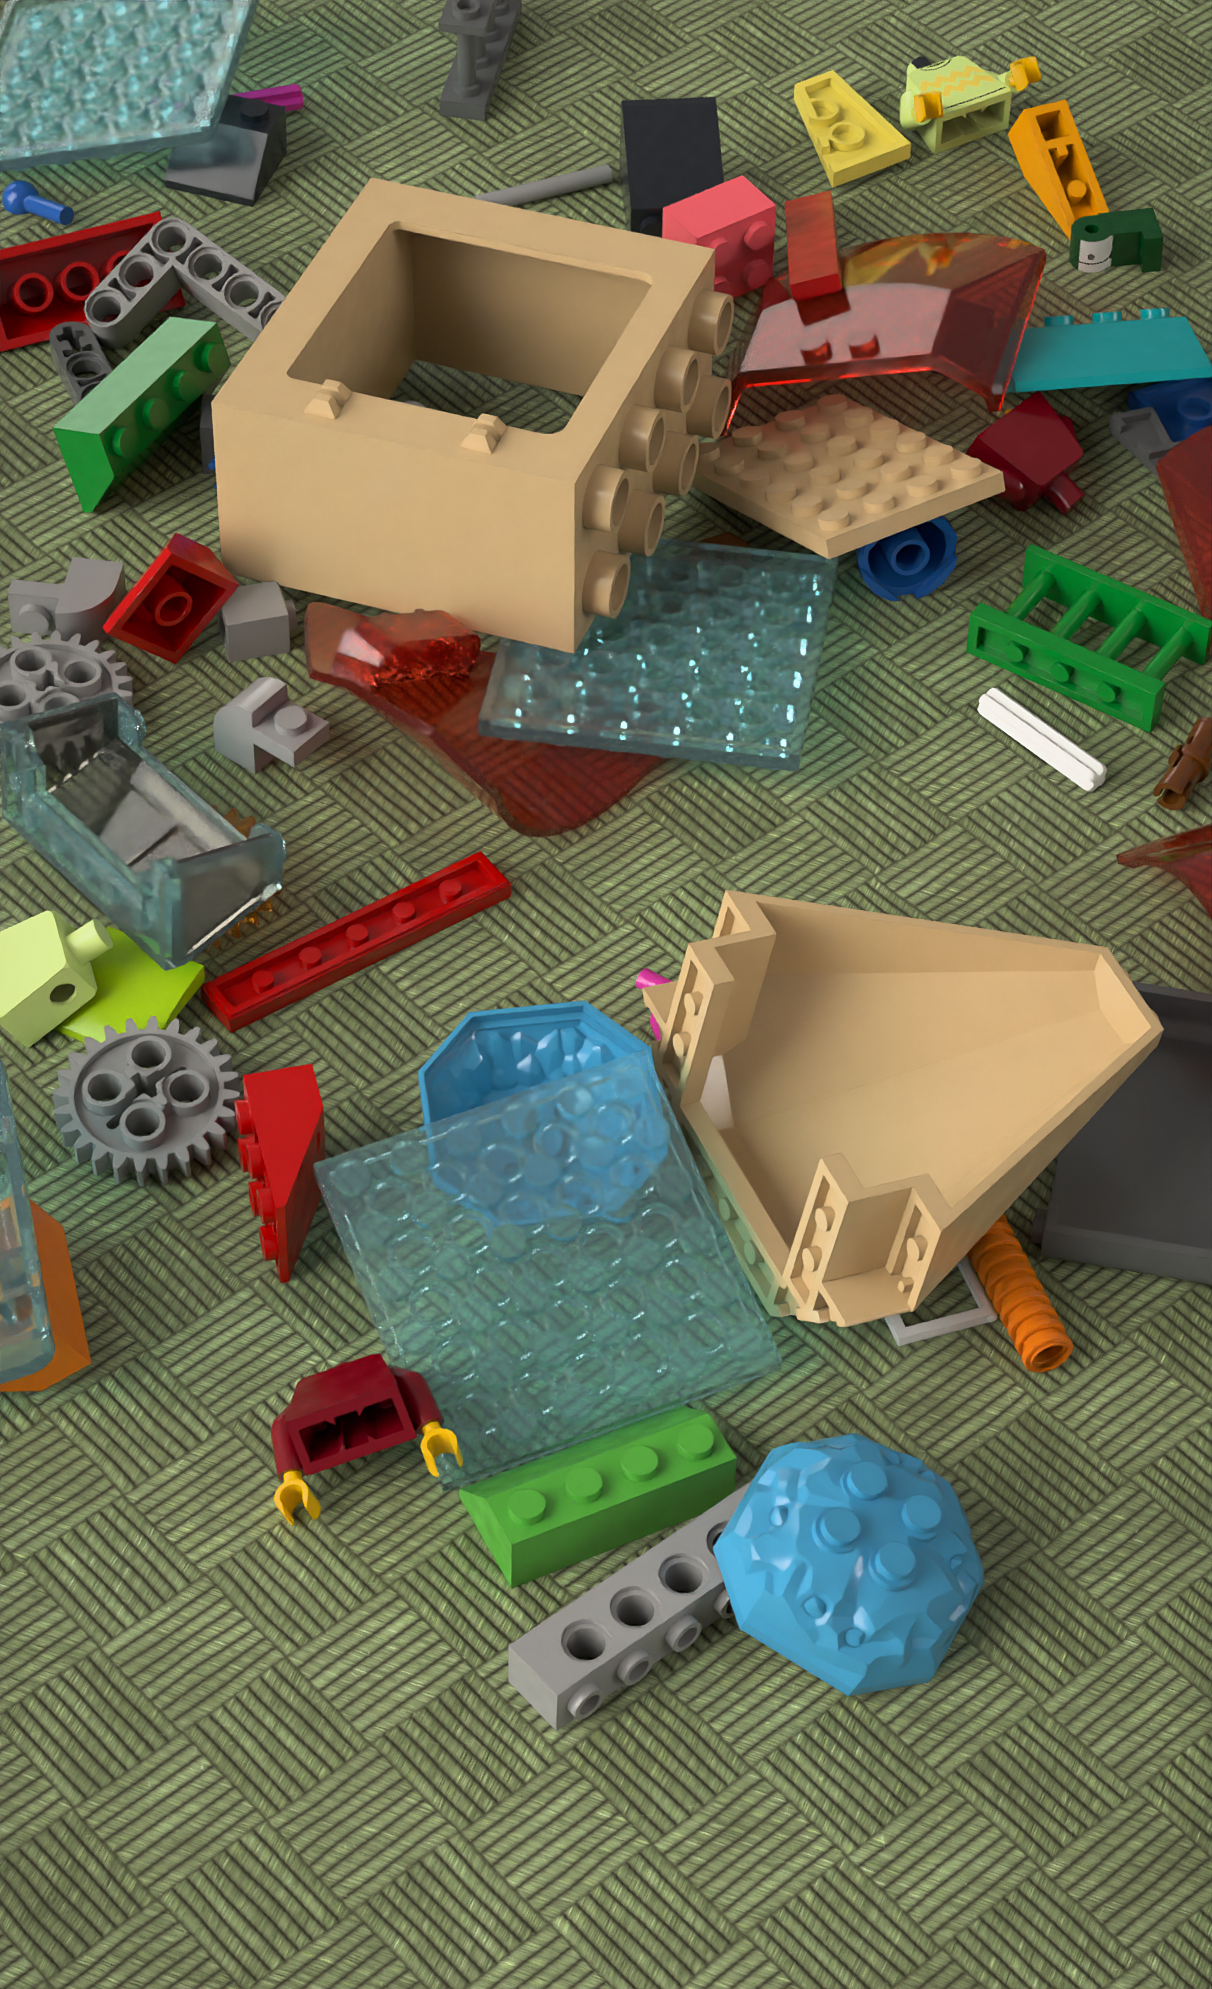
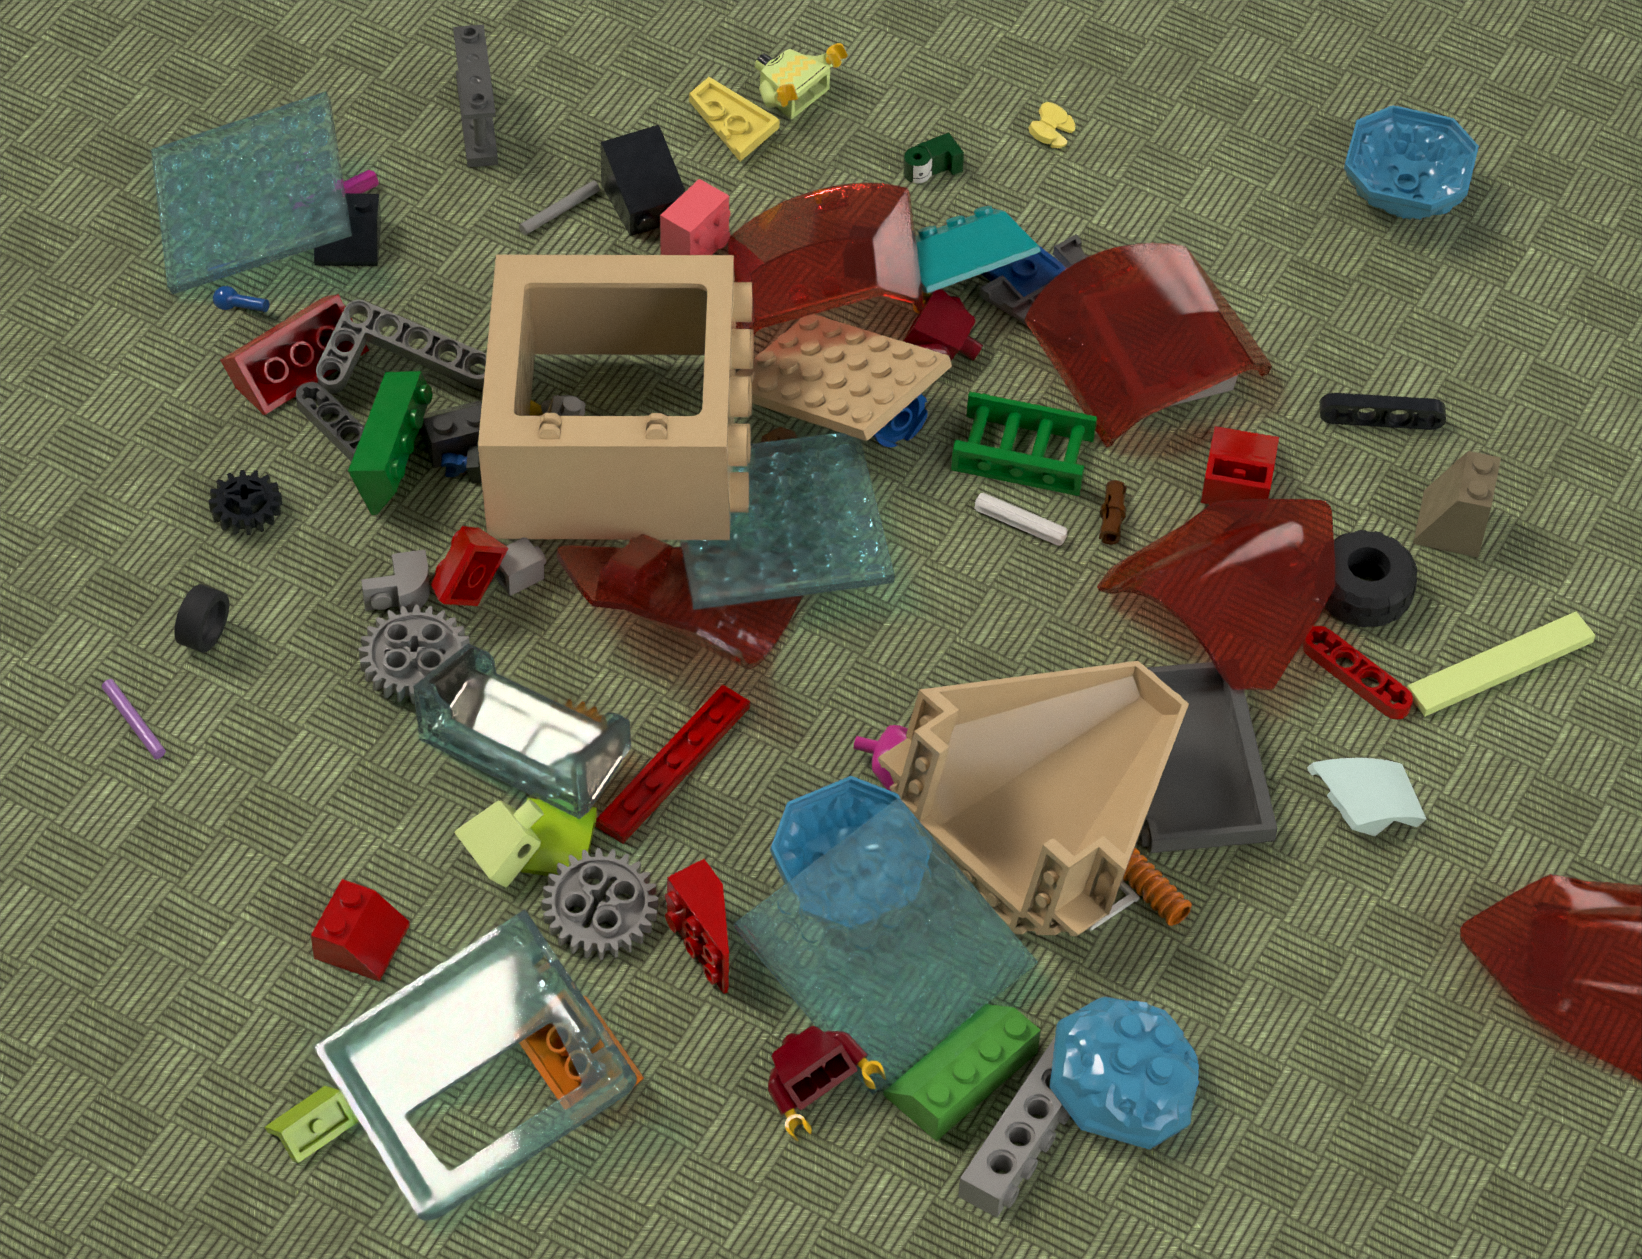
camera: 20 degrees left, 5 degrees up
(267, 725) = (563, 635): light grey brick -> none
(812, 246) = (758, 216): red tile -> none
(1057, 163) = (878, 115): light orange slope -> none

